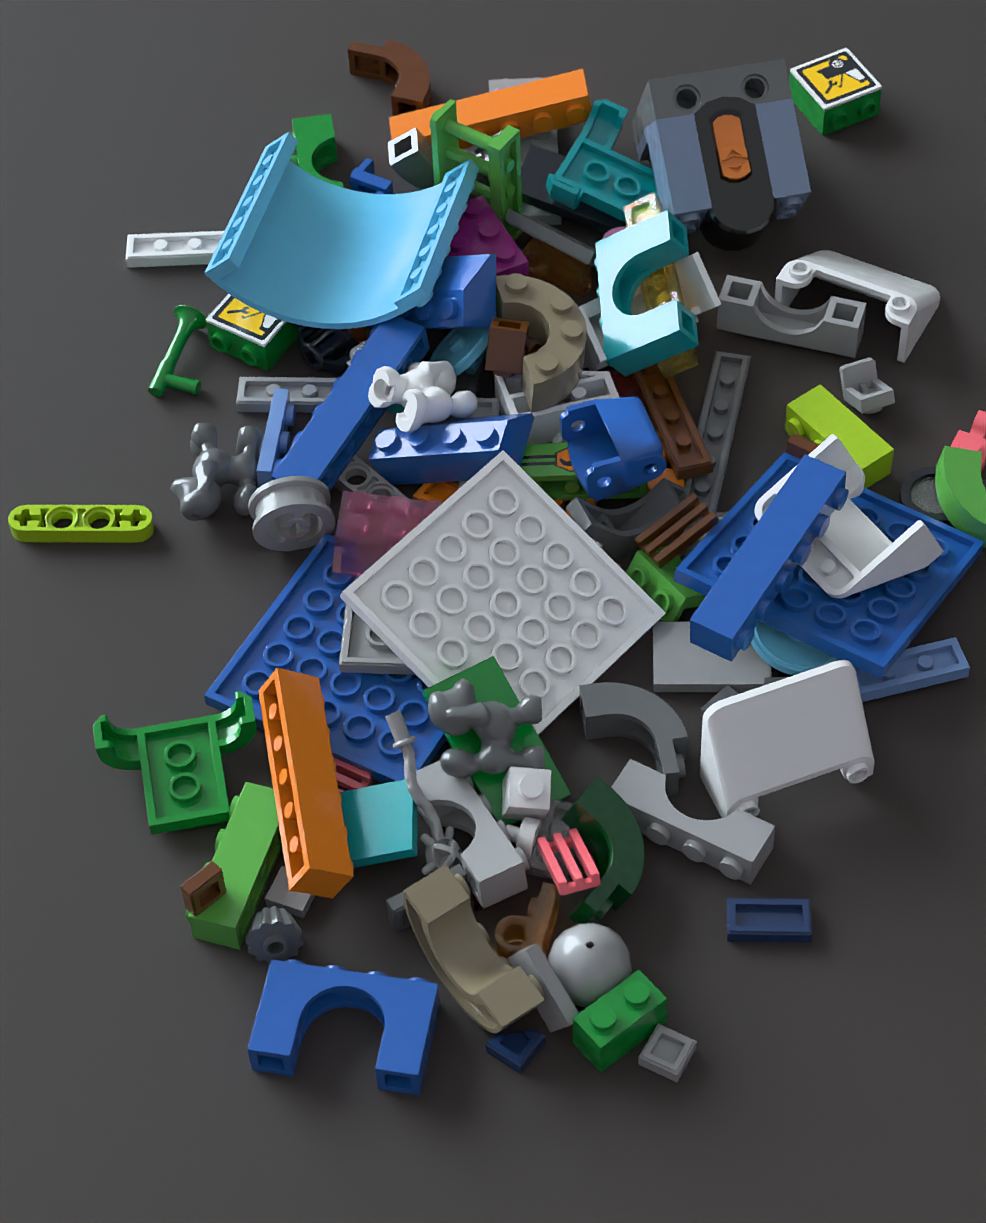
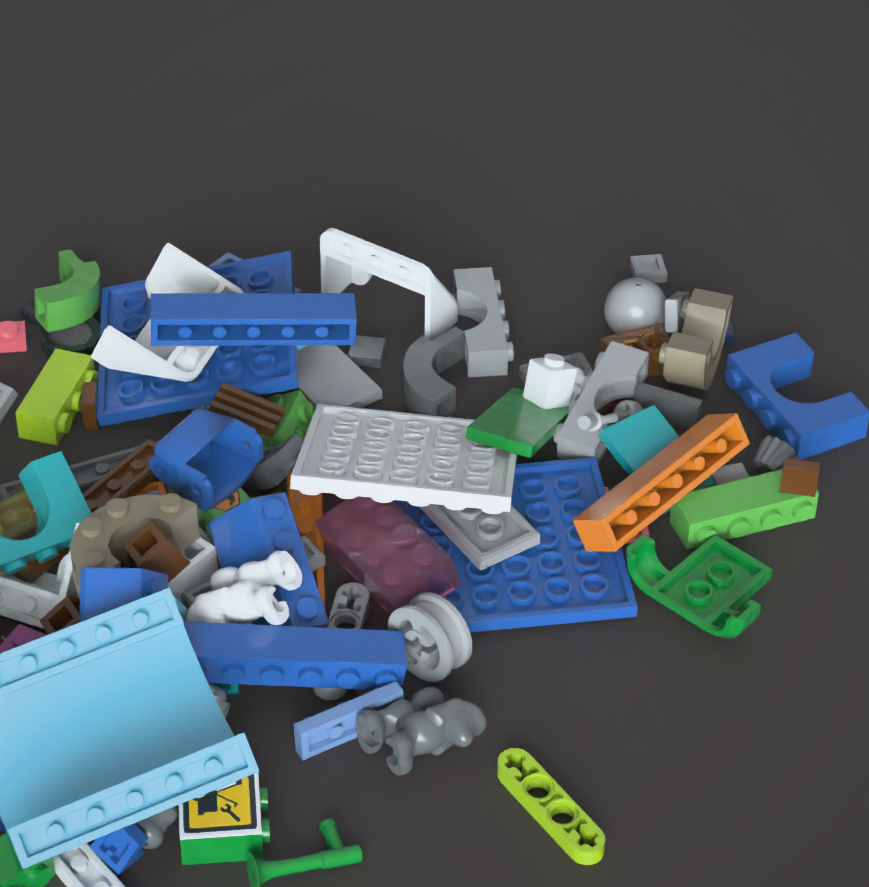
camera: 130 degrees left, 10 degrees down
(256, 393) = (279, 756): light grey tile -> none
(494, 723) = (529, 397): dark grey animal -> none
(563, 845) = (576, 326): coral tile -> none
(616, 844) = (555, 330): dark green arch -> none
(619, 1020) = (667, 274): green brick -> none
(768, 920) = (511, 269): dark blue tile -> none

